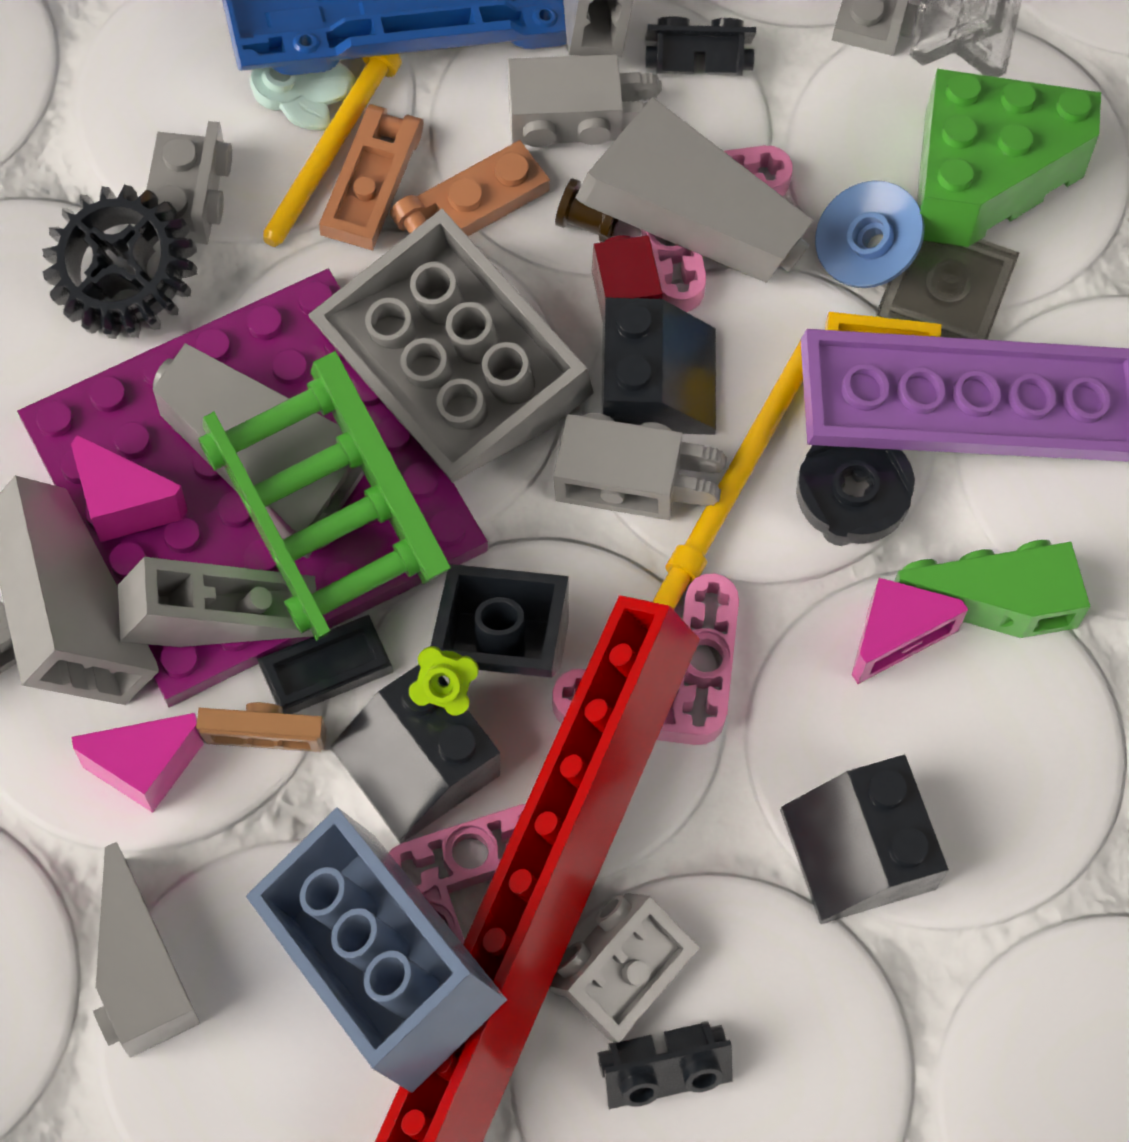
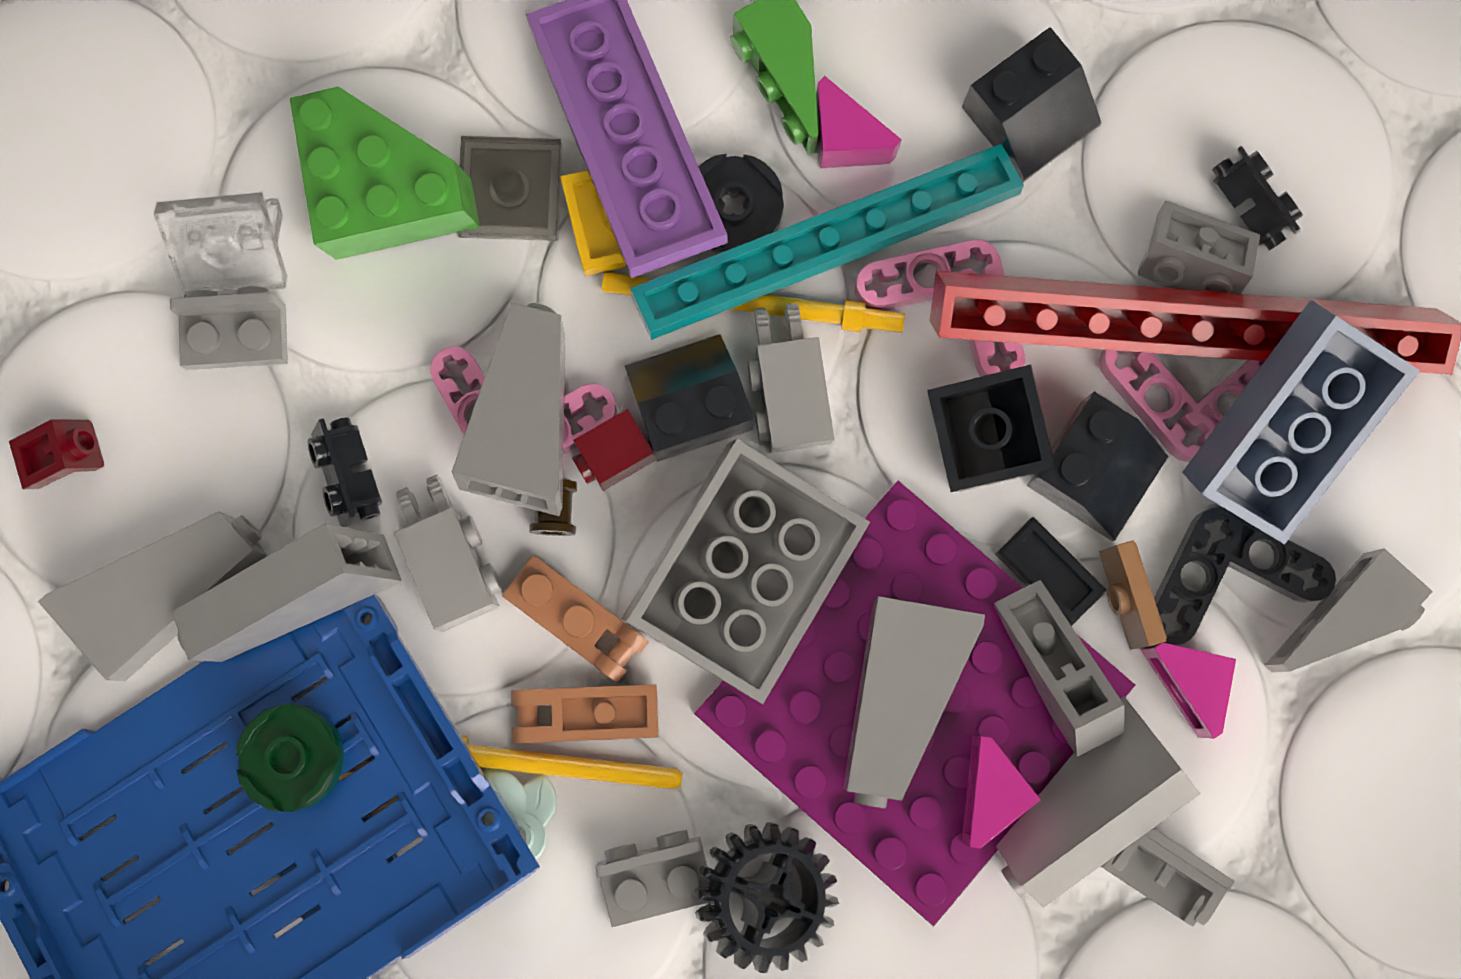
camera: 110 degrees left, 15 degrees up
(252, 868) = (1234, 553): none -> black beam
(356, 446) = (902, 594): bright green fence -> none
(459, 671) = (1071, 446): lime plate -> none
(778, 565) = (825, 241): none -> teal plate
(858, 216) = (515, 275): medium blue dish -> none

